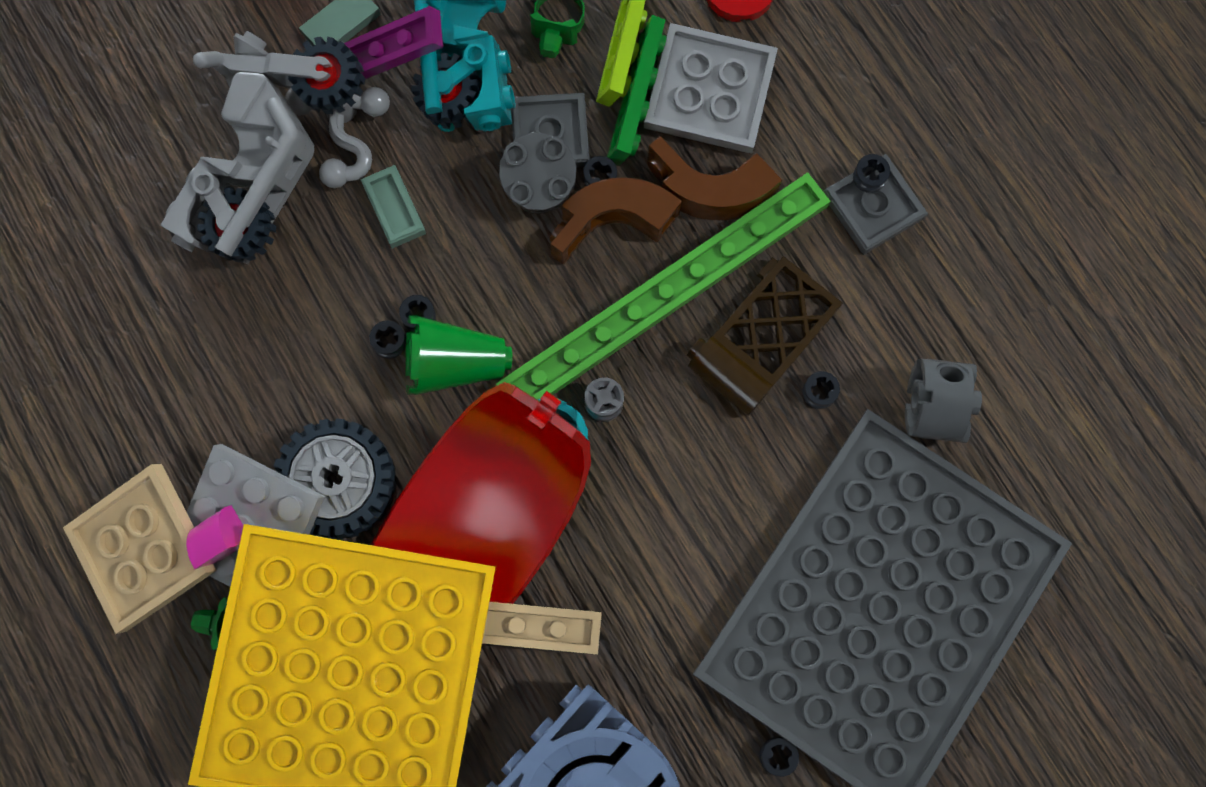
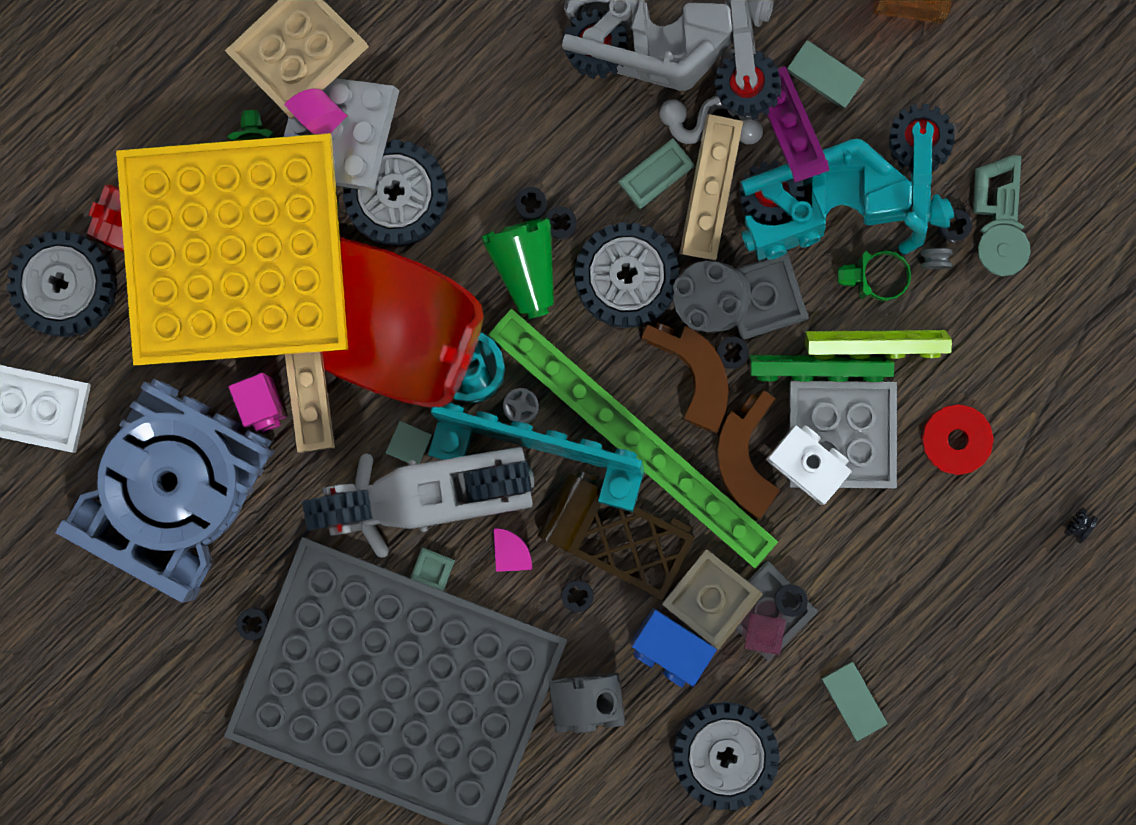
camera: 85 degrees right, 10 degrees up
(422, 150) = (711, 187): none -> tan plate
(464, 252) = (603, 261): none -> wheel
(530, 685) = (258, 403): none -> dark pink brick
(615, 531) = (409, 443): none -> sand green tile
(683, 517) = (423, 495): none -> light grey piece
(700, 306) = (456, 429): none -> teal bracket
(737, 117) = (809, 463): none -> white brick
(759, 538) = (432, 569): none -> sand green tile
(760, 446) = (511, 552): none -> dark pink brick
(854, 249) = (712, 599): none -> dark tan plate
(900, 207) = (764, 634): none -> clear pink tile
(900, 298) = (672, 647): none -> blue brick
(983, 142) = (854, 701): none -> sand green tile
(1046, 280) = (738, 780): none -> wheel

